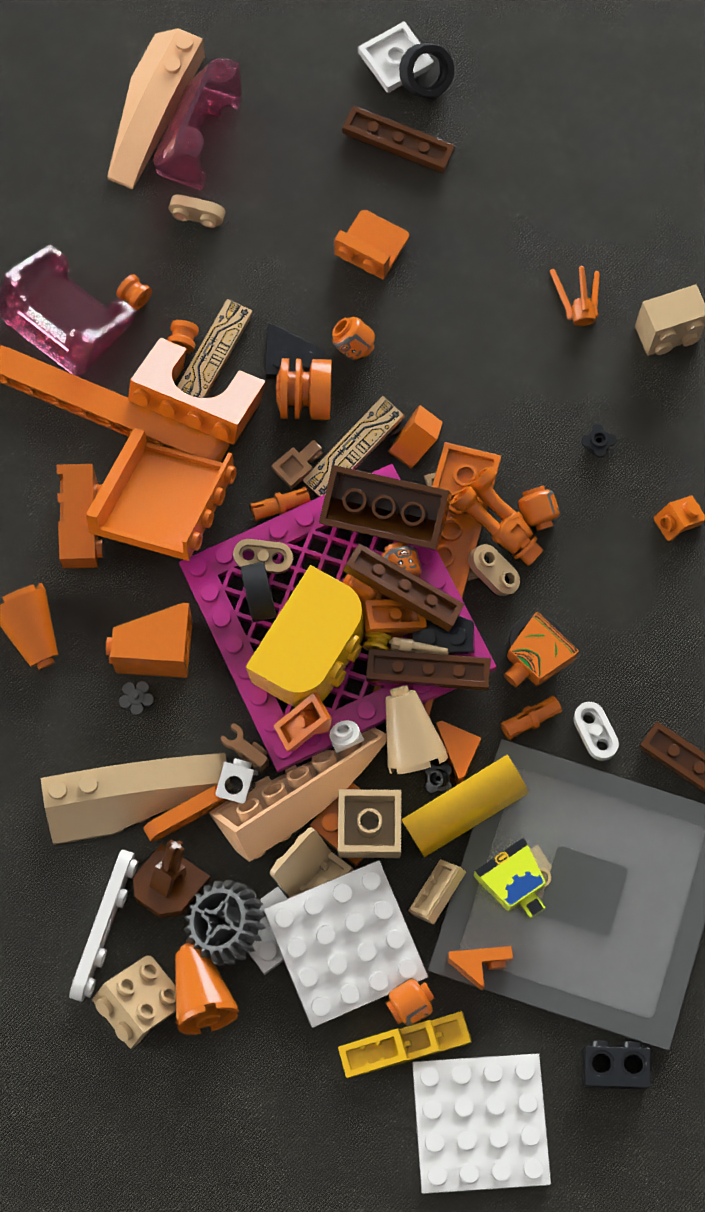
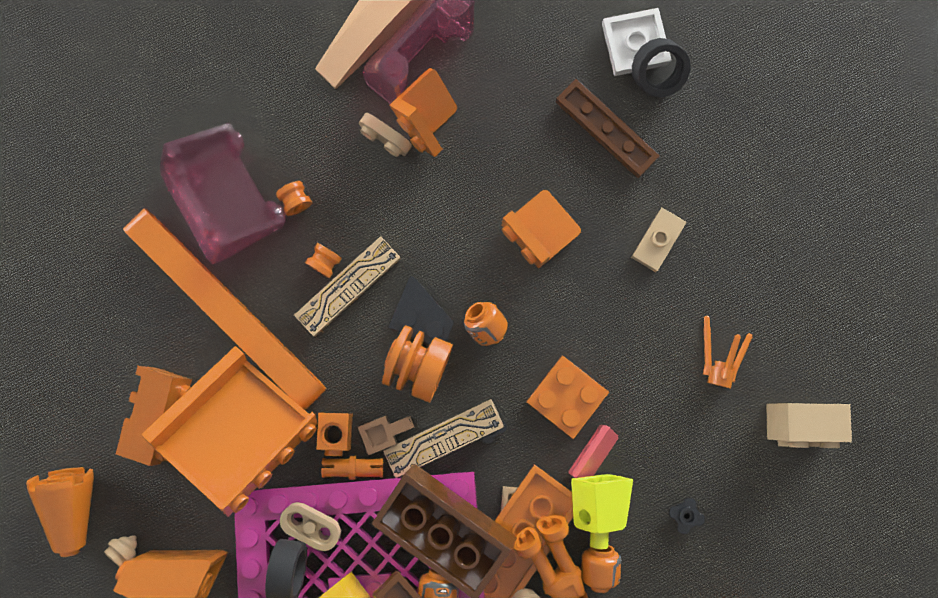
camera: 20 degrees right, 10 degrees up
(93, 649) = (121, 549): none -> tan plate
(217, 416) = (322, 364): arch -> none
(226, 175) = (423, 110): none -> orange bracket
(252, 466) = (327, 420): none -> orange brick
(416, 437) = (511, 447): orange slope -> none
(452, 379) = (567, 397): none -> orange plate
(482, 219) = (658, 239): none -> tan plate
(496, 418) = (594, 452): none -> coral slope
(516, 451) = (601, 506): none -> neon yellow torso

